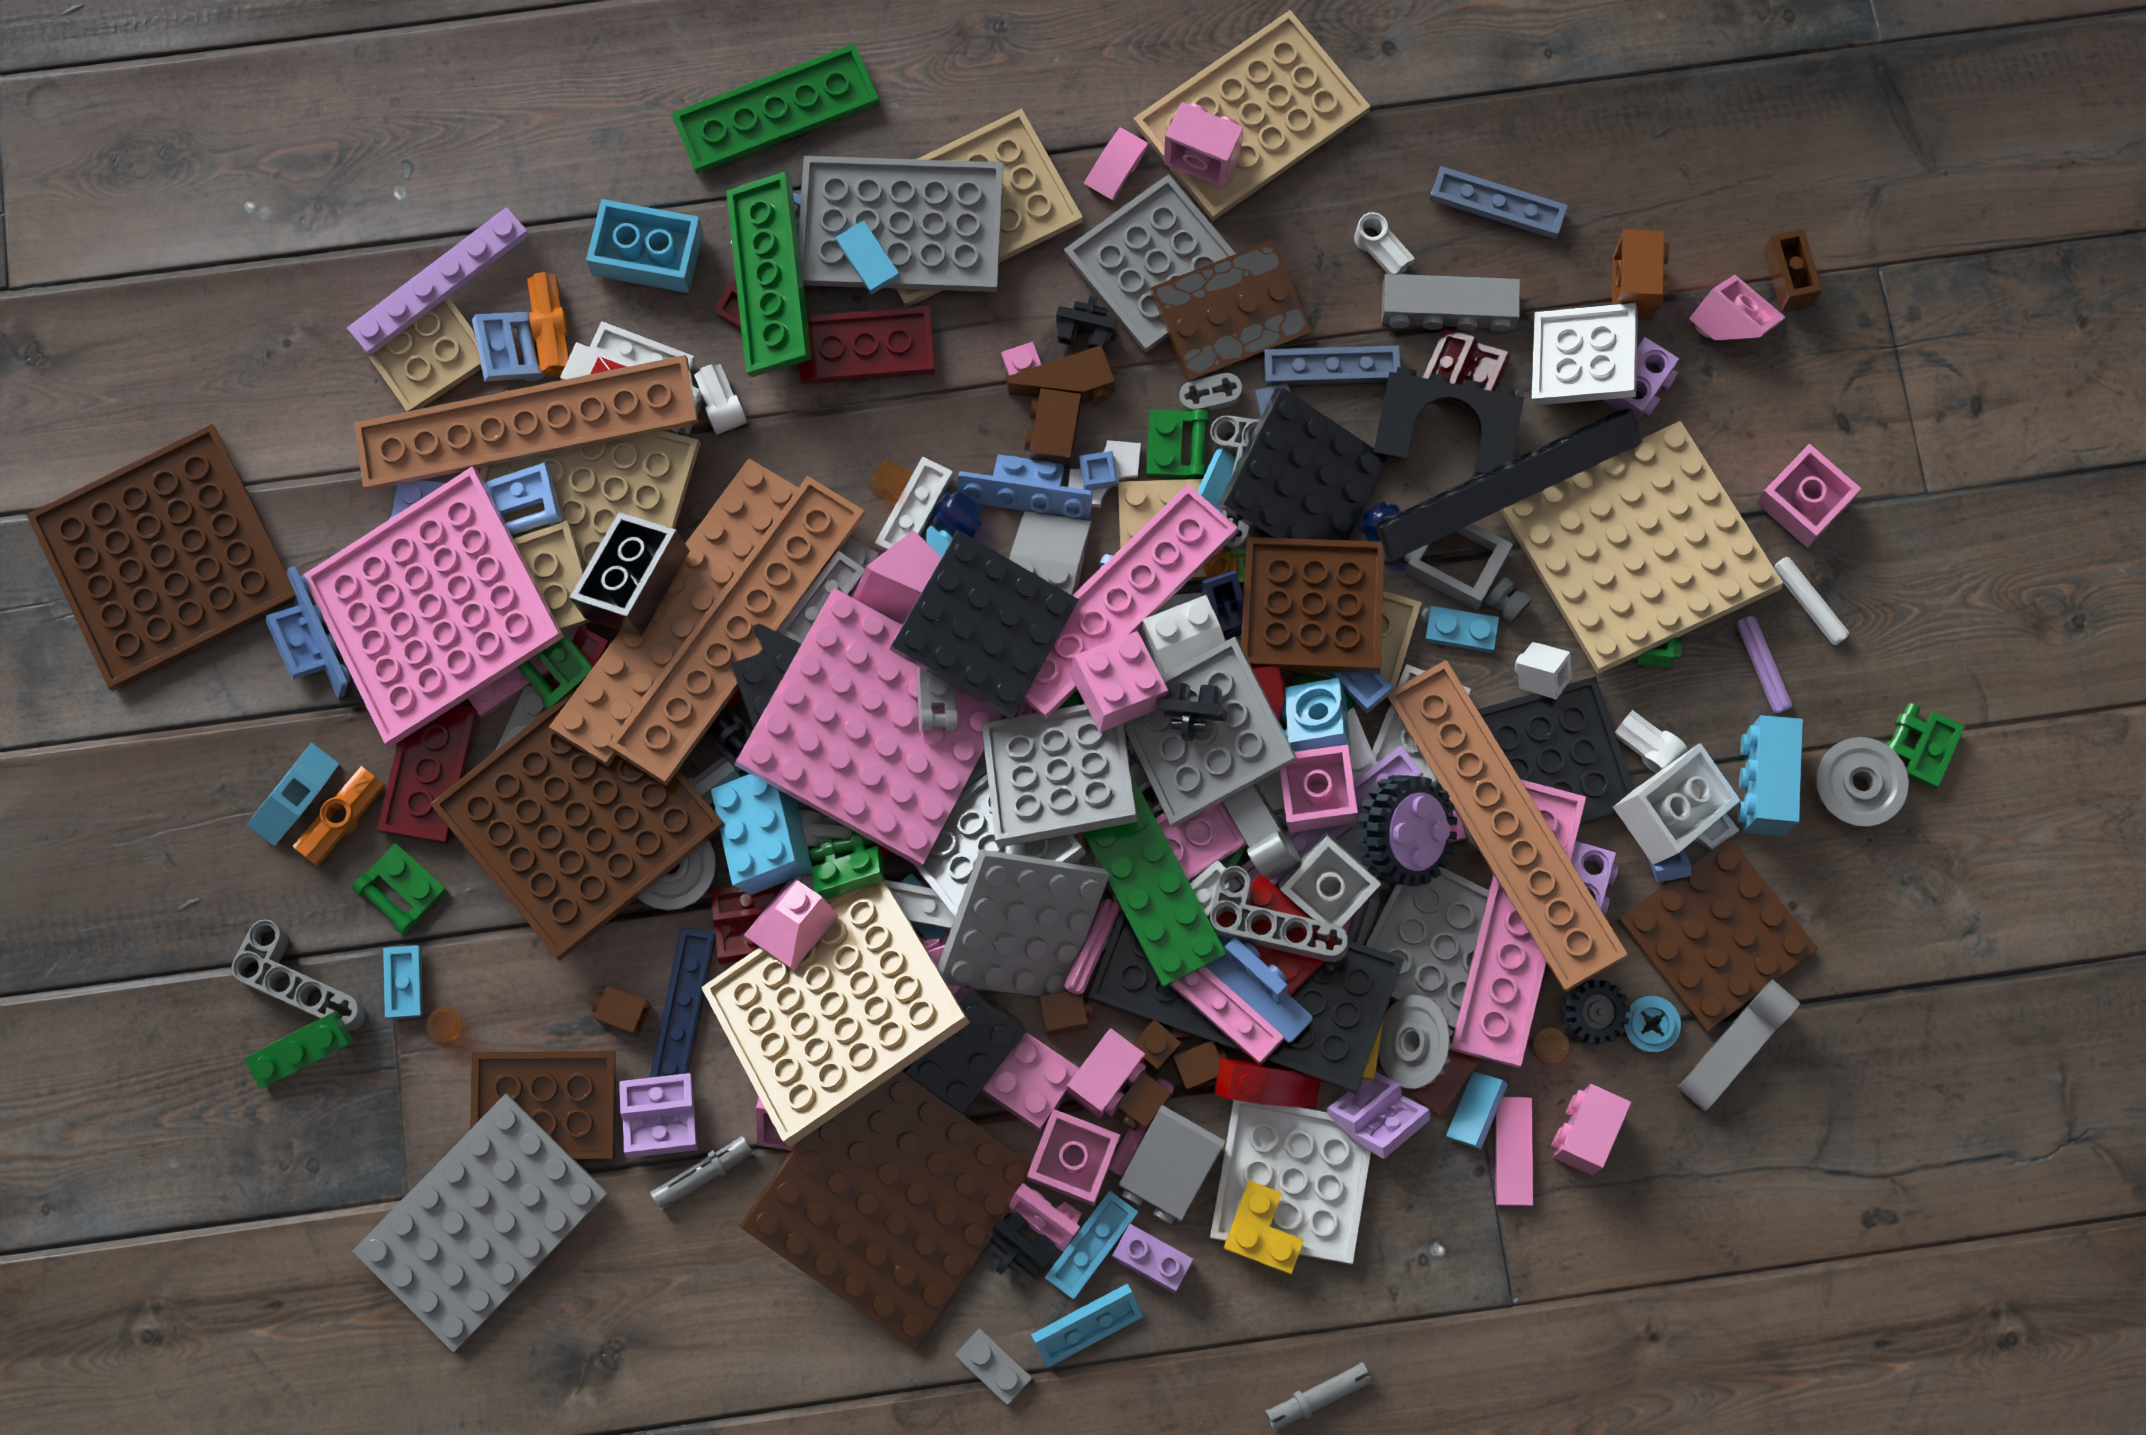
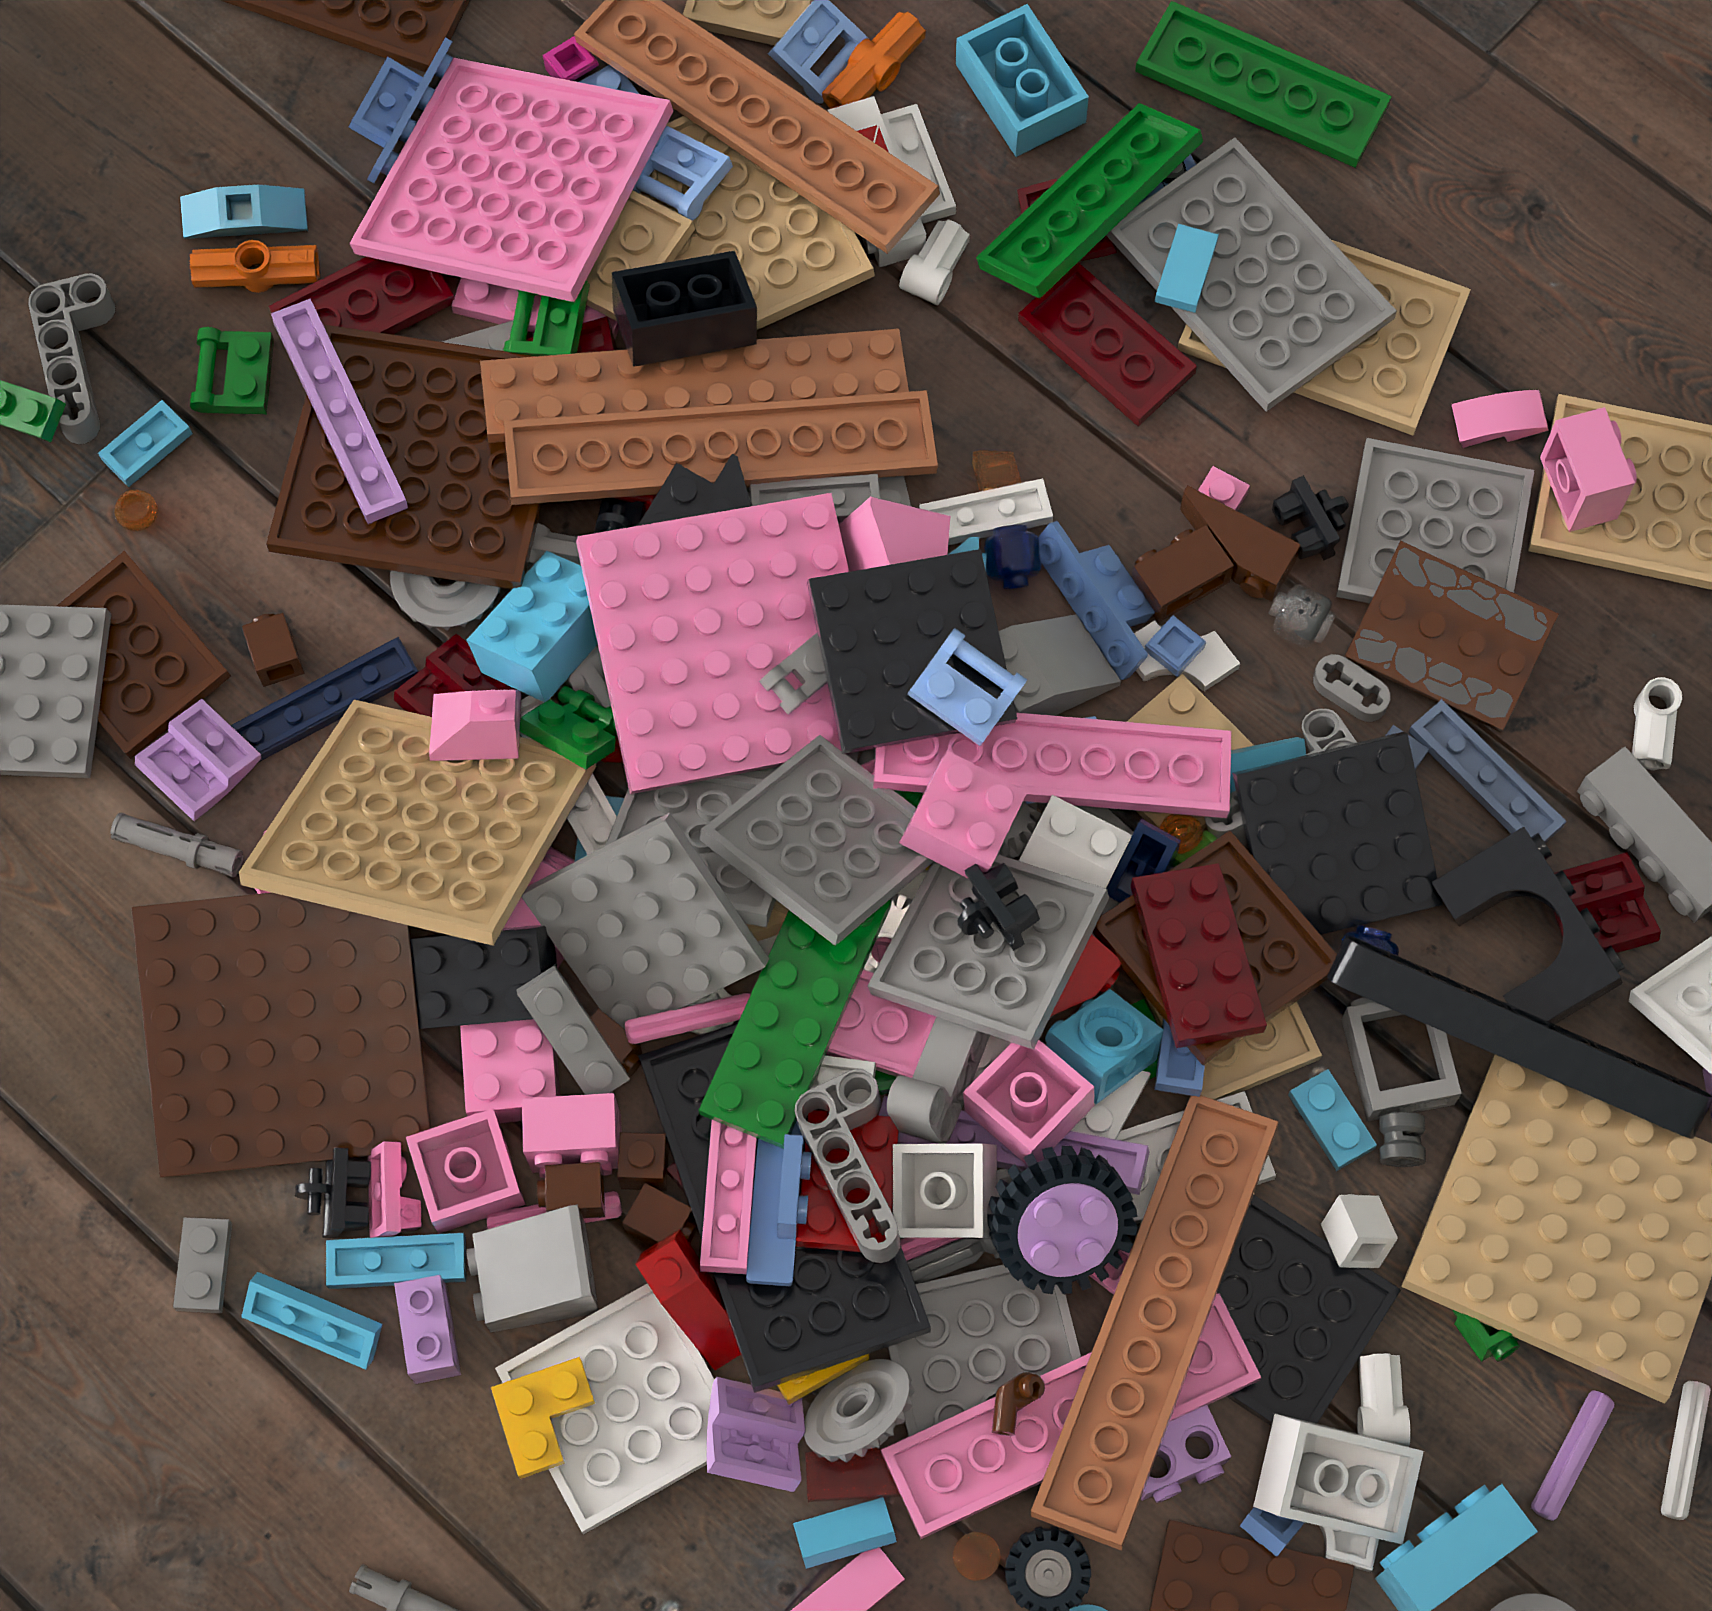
camera: 50 degrees right, 5 degrees down
(374, 506) = (569, 60): none -> dark pink slope
(504, 840) = (339, 411): none -> lavender plate
(1041, 622) = (958, 698): none -> light blue plate
(1050, 1023) = (572, 1033): none -> light grey plate
(1142, 382) = (1302, 616): none -> clear head
(1166, 444) = (1263, 688): green plate -> none
(1313, 619) = (1198, 955): none -> dark red plate
(1484, 946) = (1012, 1397): none -> reddish brown arm

